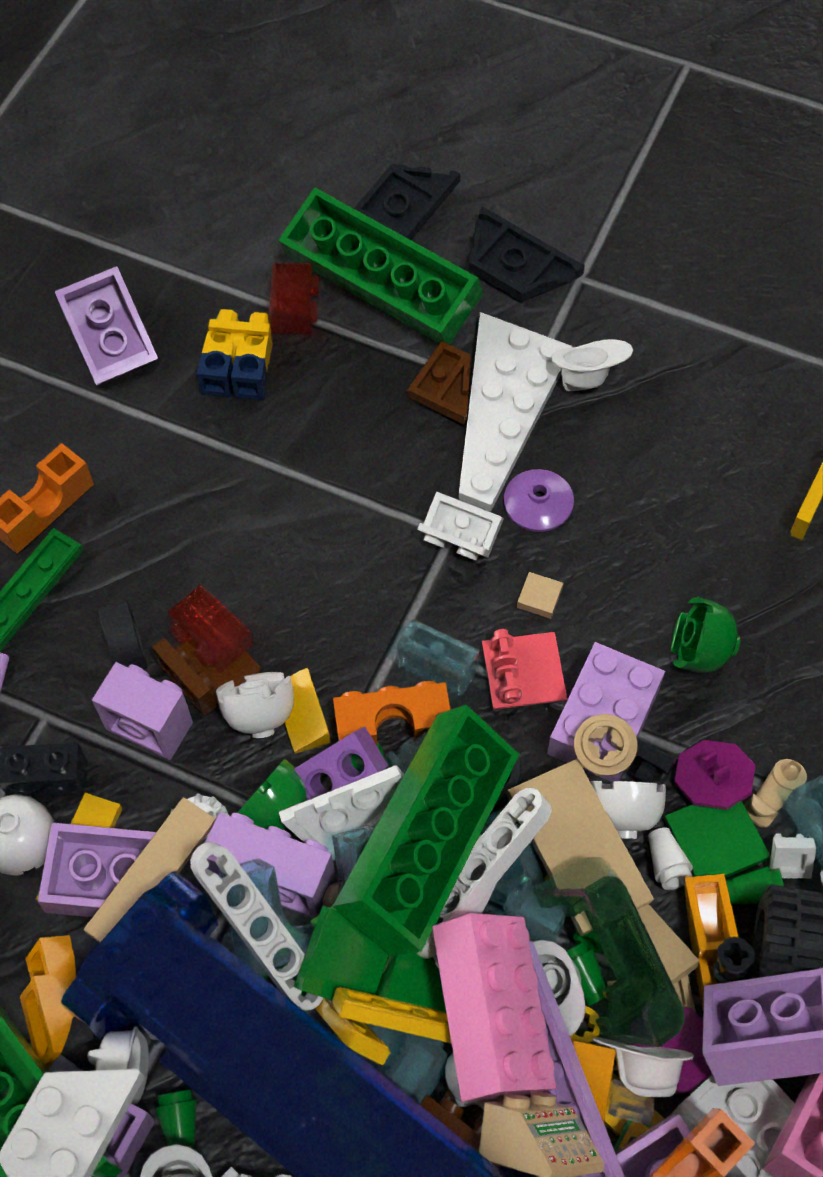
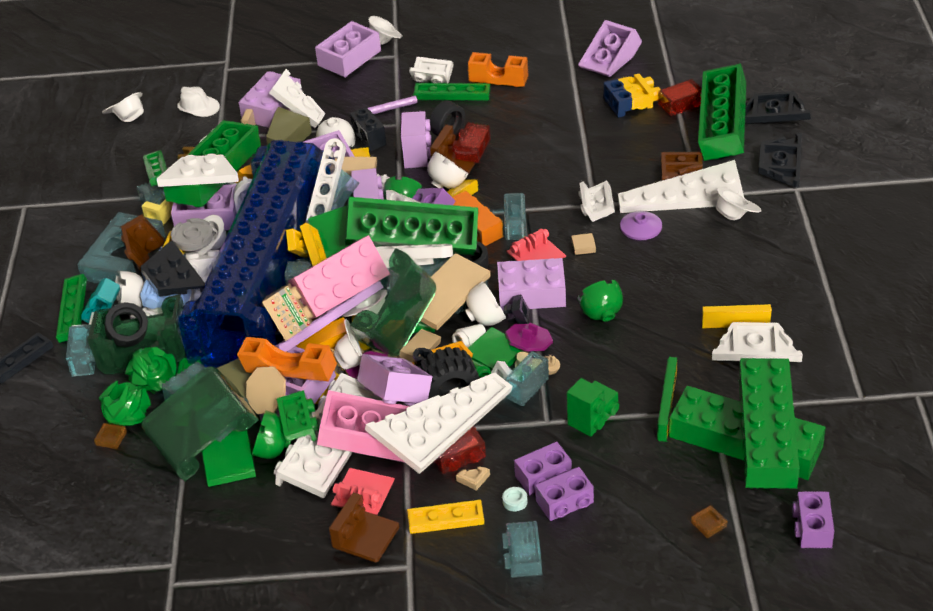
camera: 65 degrees right, 20 degrees down
(621, 737) = (508, 268): tan gear -> none

